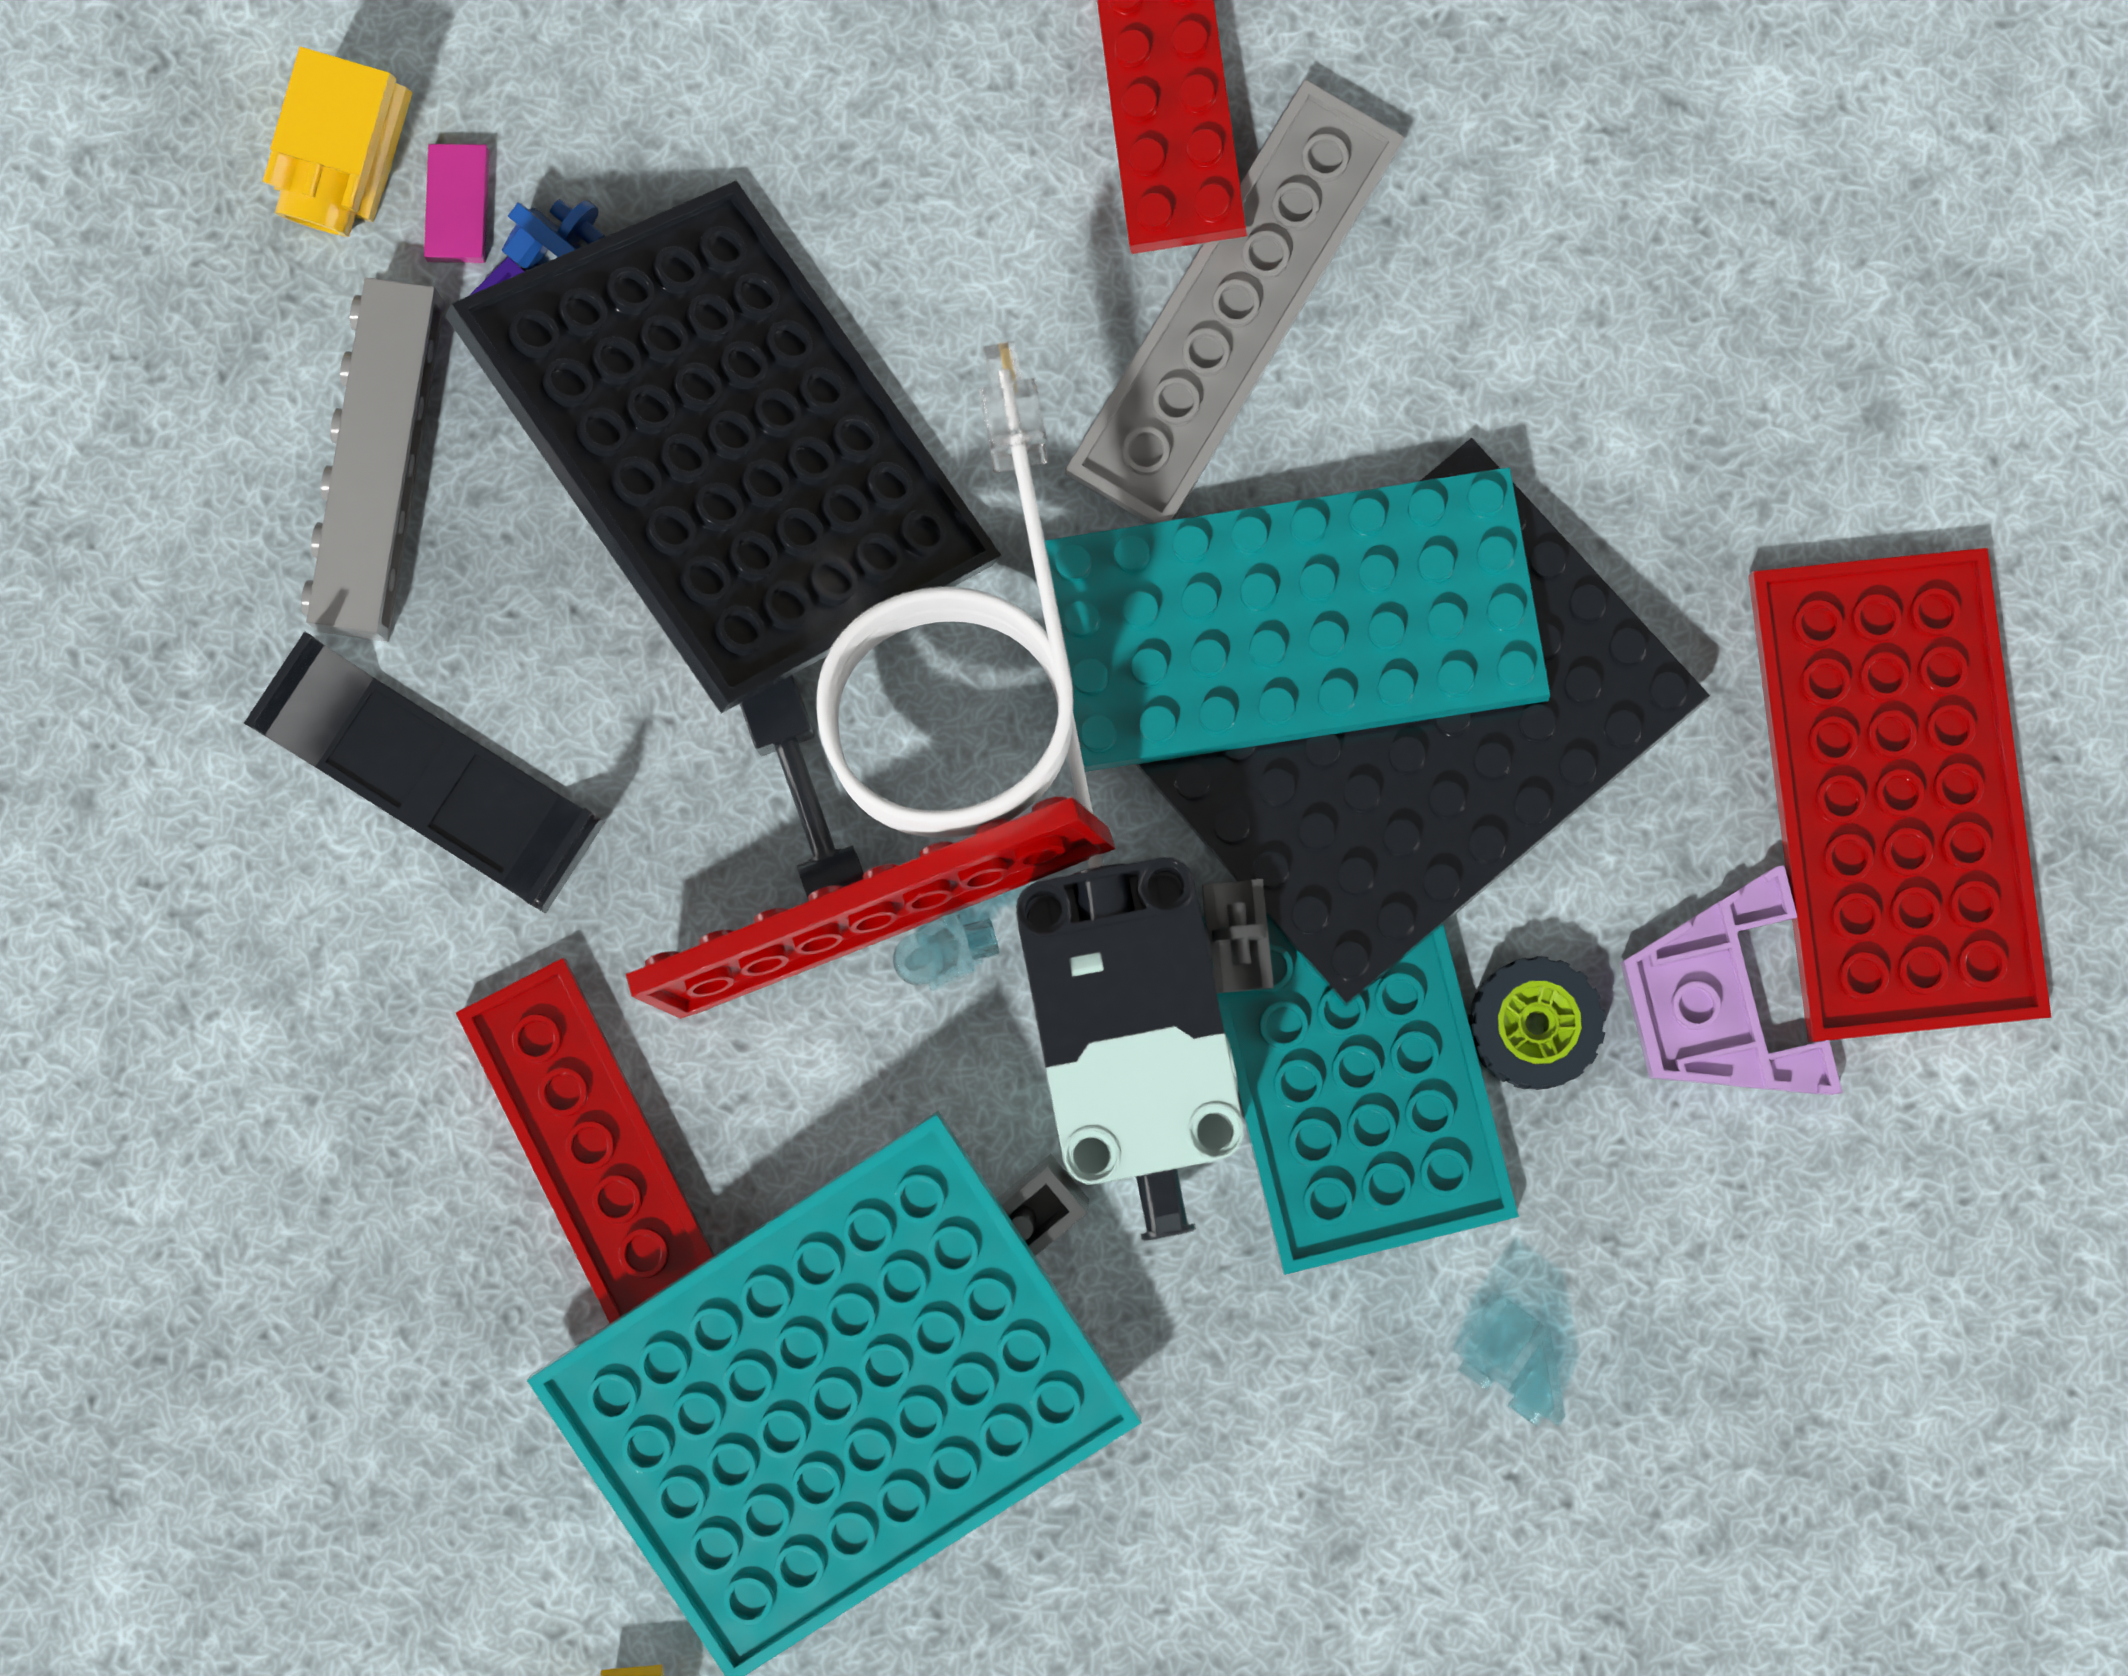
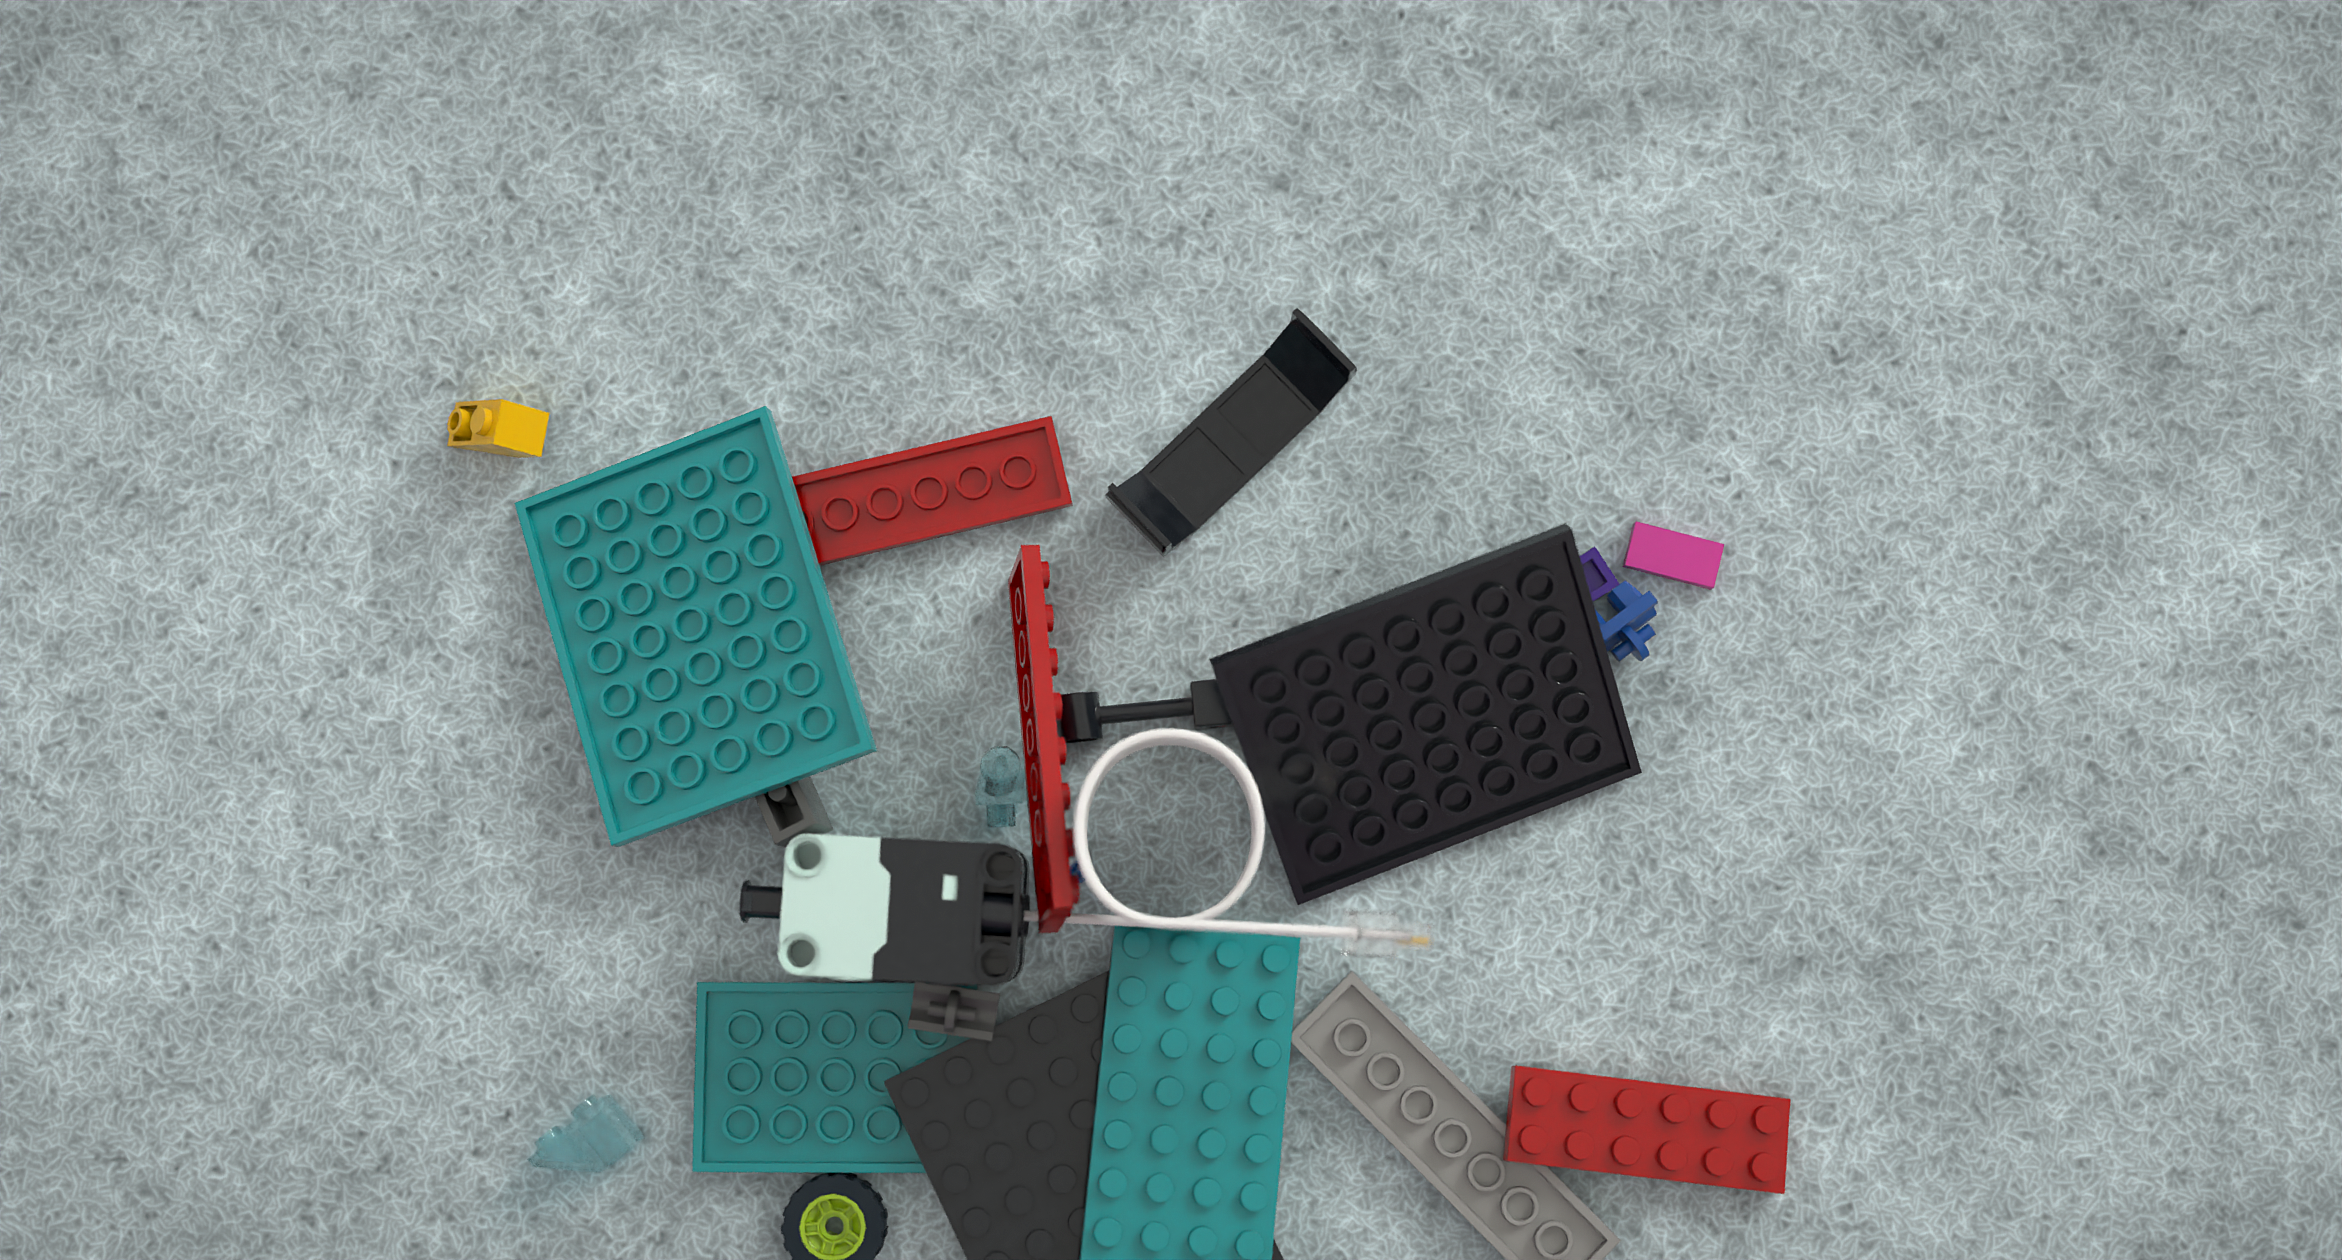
camera: 105 degrees right, 0 degrees up
(335, 141) = (1736, 473): yellow piece -> none
(374, 459) = (1485, 449): light grey brick -> none

